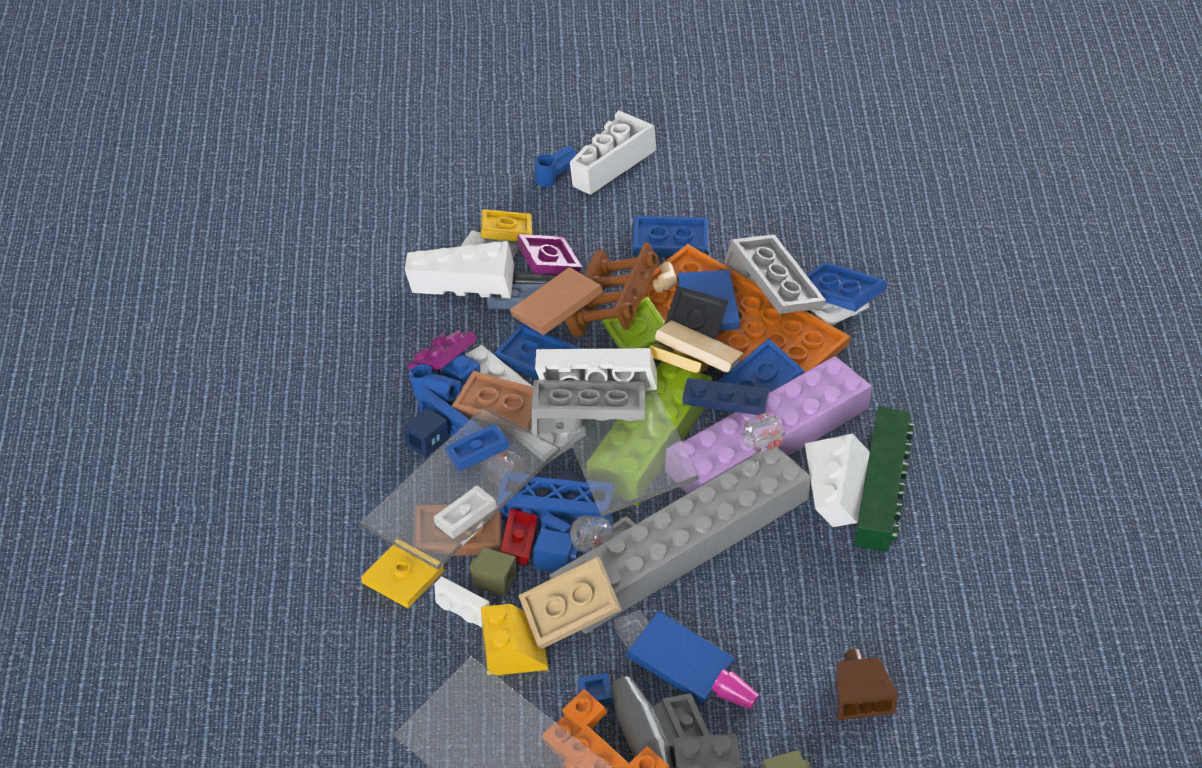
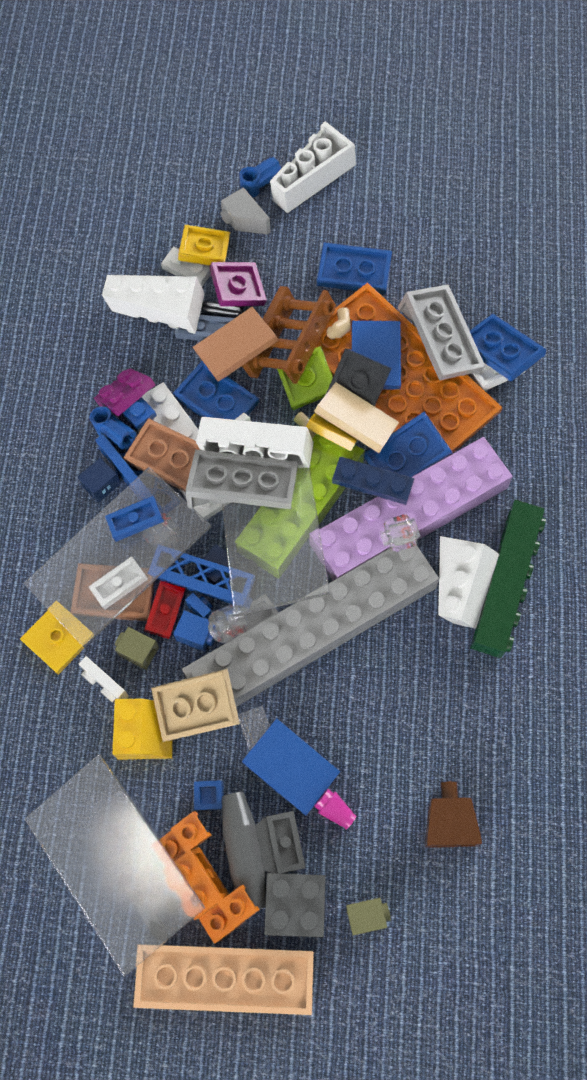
camera: 10 degrees right, 25 degrees up
(545, 197) = (244, 213): none -> light grey slope

